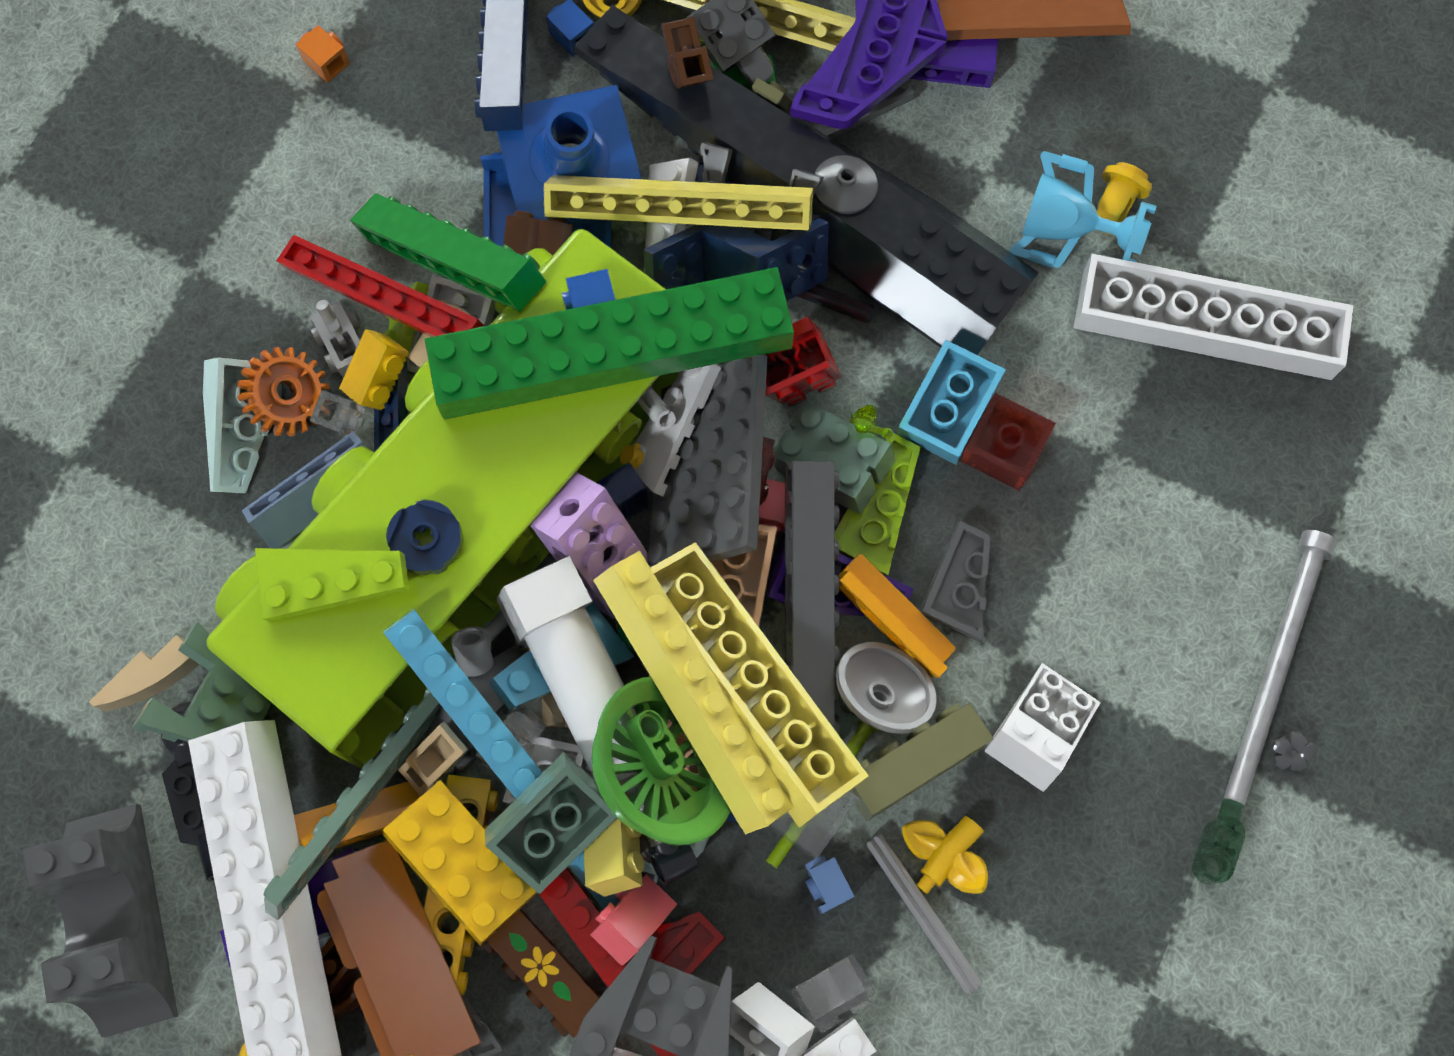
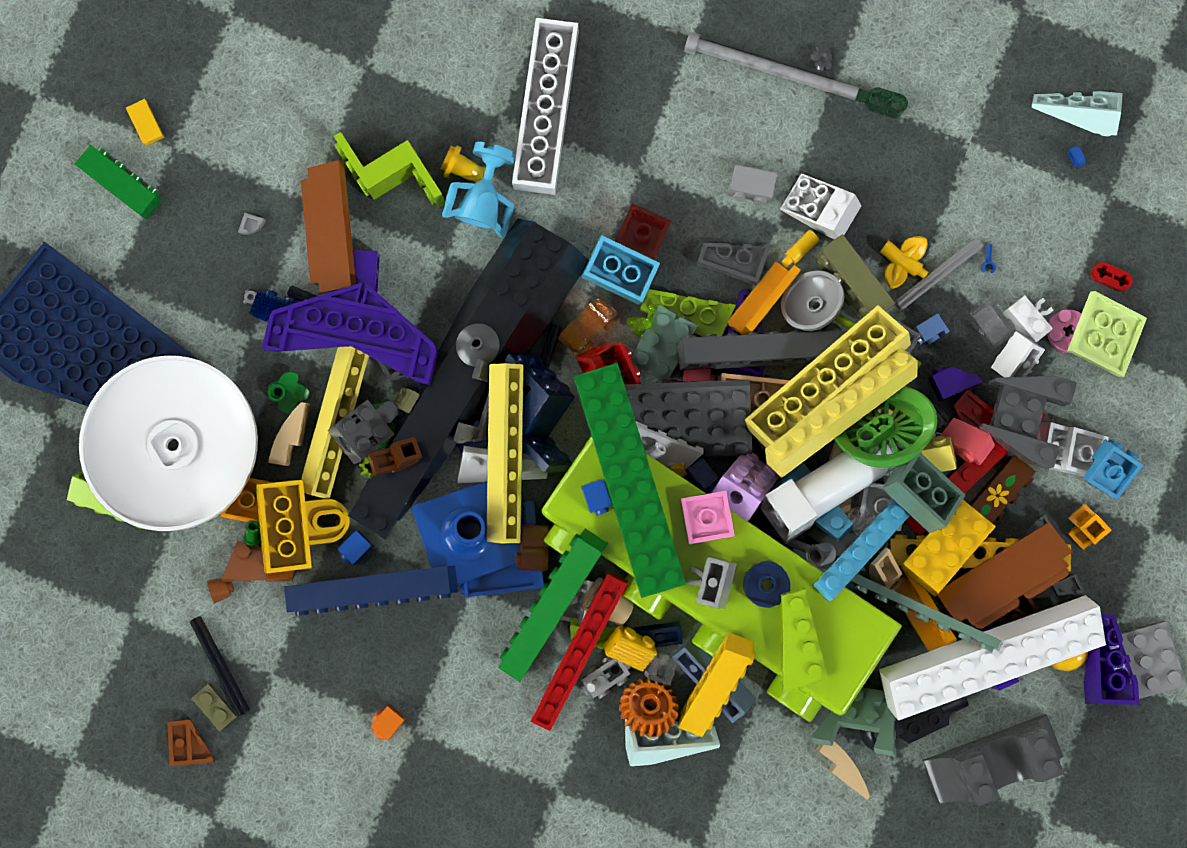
camera: 90 degrees left, 10 degrees up
(293, 471) = (716, 684): none -> yellow brick
(436, 454) = (715, 582): none -> light grey brick
(540, 456) = (707, 517): none -> bright pink plate
(738, 912) = (951, 381): none -> dark purple slope
(868, 355) = (588, 325): none -> clear orange brick
(944, 1002) = (988, 260): none -> blue hand
(975, 687) = (800, 248): none -> yellow cylinder
(1083, 618) = (752, 184): none -> light grey brick
(1116, 92) = (389, 170): none -> lime bracket

